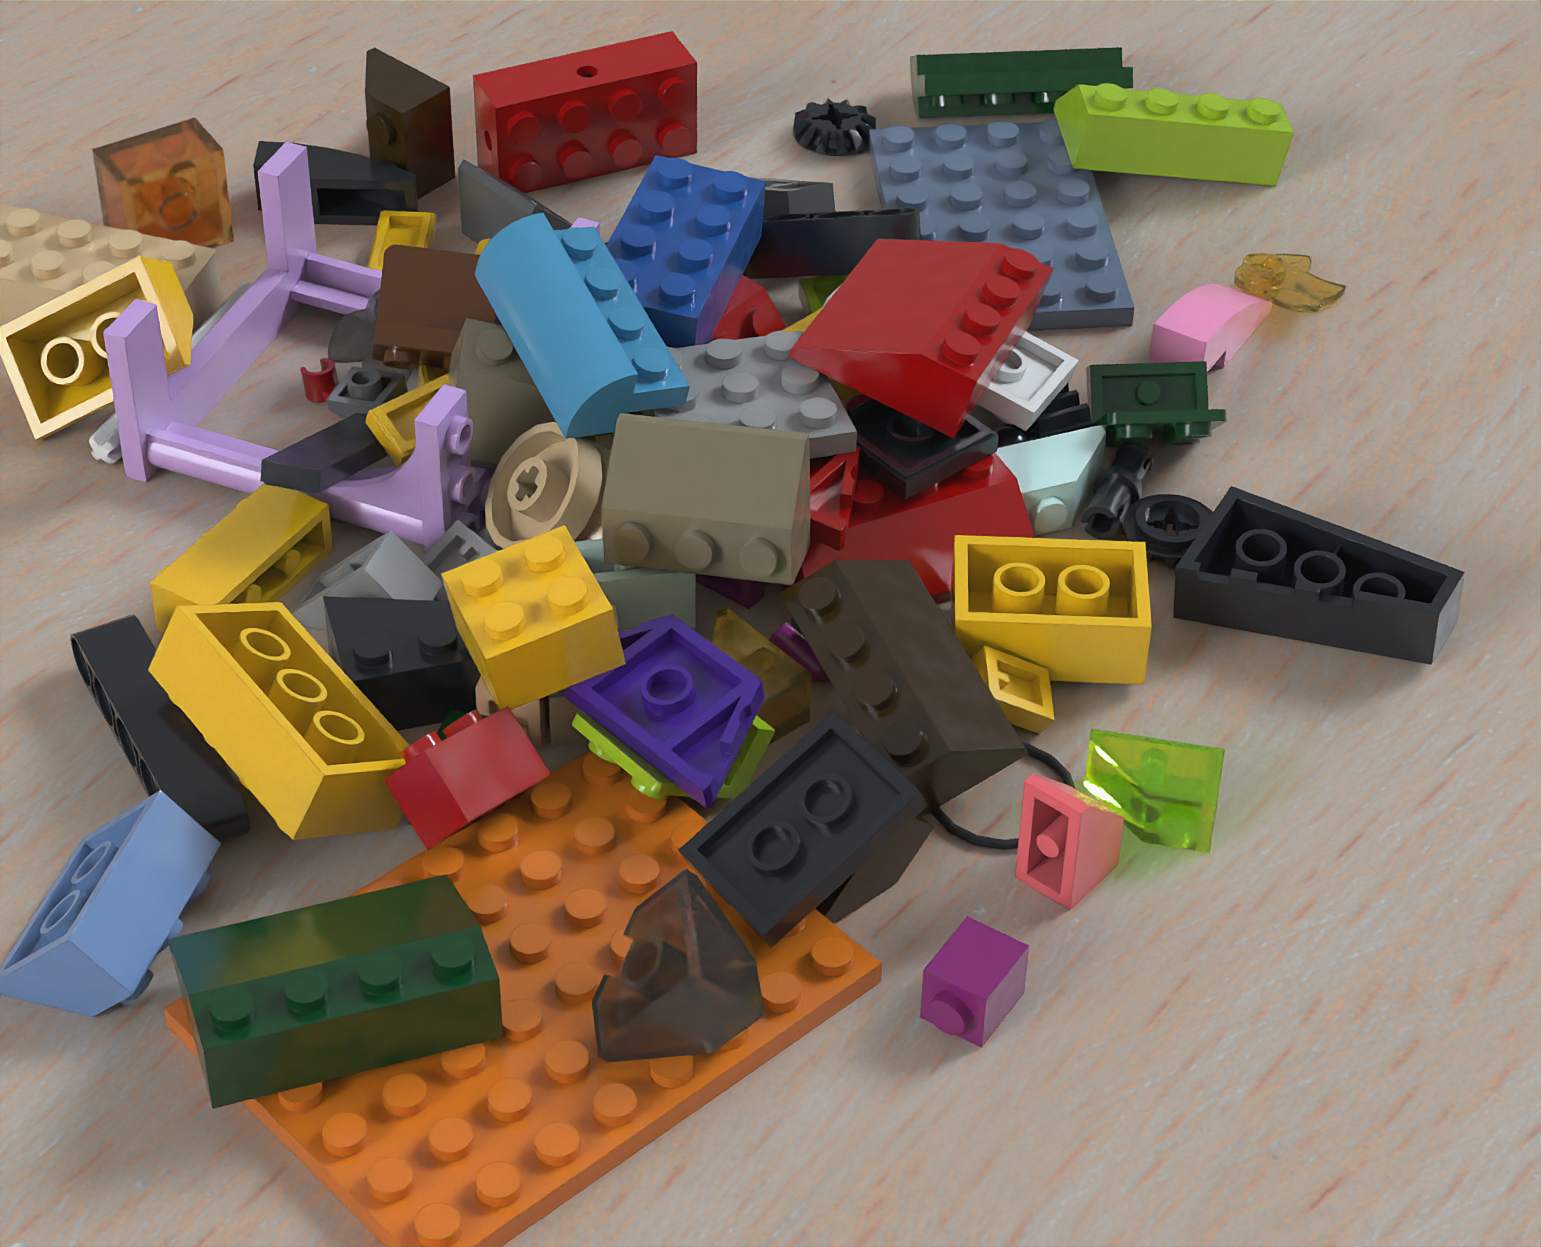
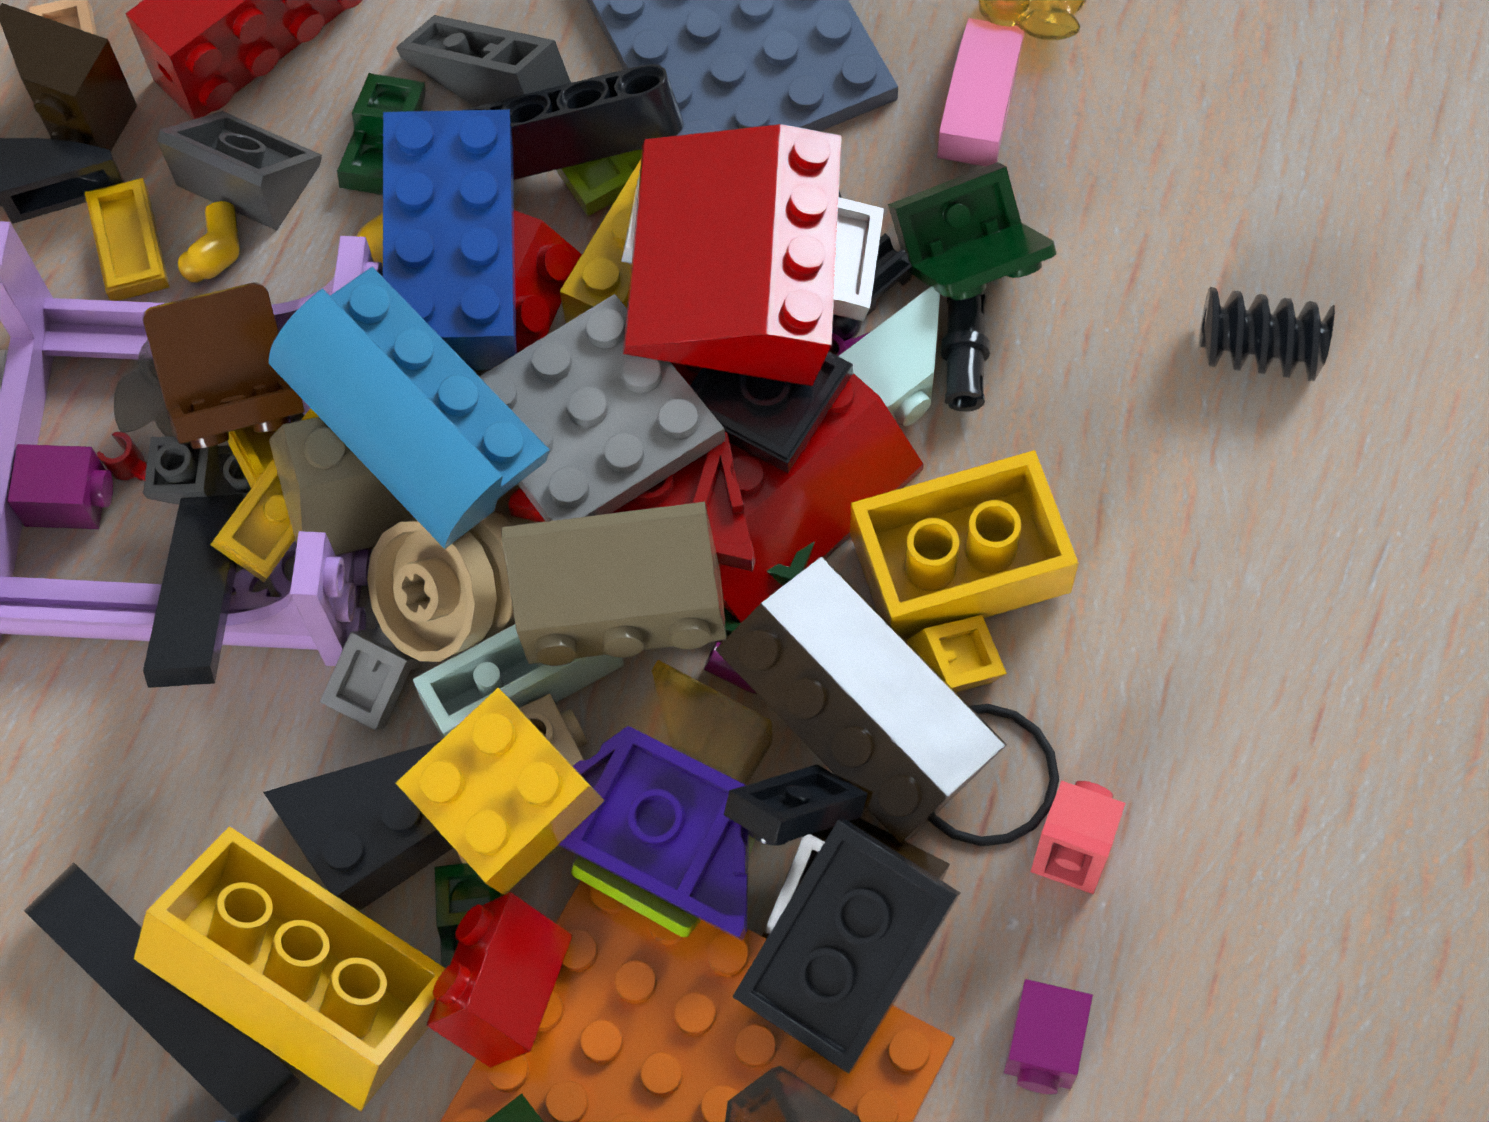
camera: 15 degrees left, 25 degrees up
(248, 555) = (147, 761): yellow brick -> none
(256, 380) = (59, 486): none -> magenta brick
(376, 571) = (292, 743): light grey slope -> none
(778, 699) = (794, 805): none -> black plate
(1149, 518) = (1045, 361): black gear -> none
(1157, 786) = (1136, 734): clear neon green slope -> none
(1314, 582) = (1197, 423): black wedge -> none
(1406, 532) = (1266, 334): none -> black piece

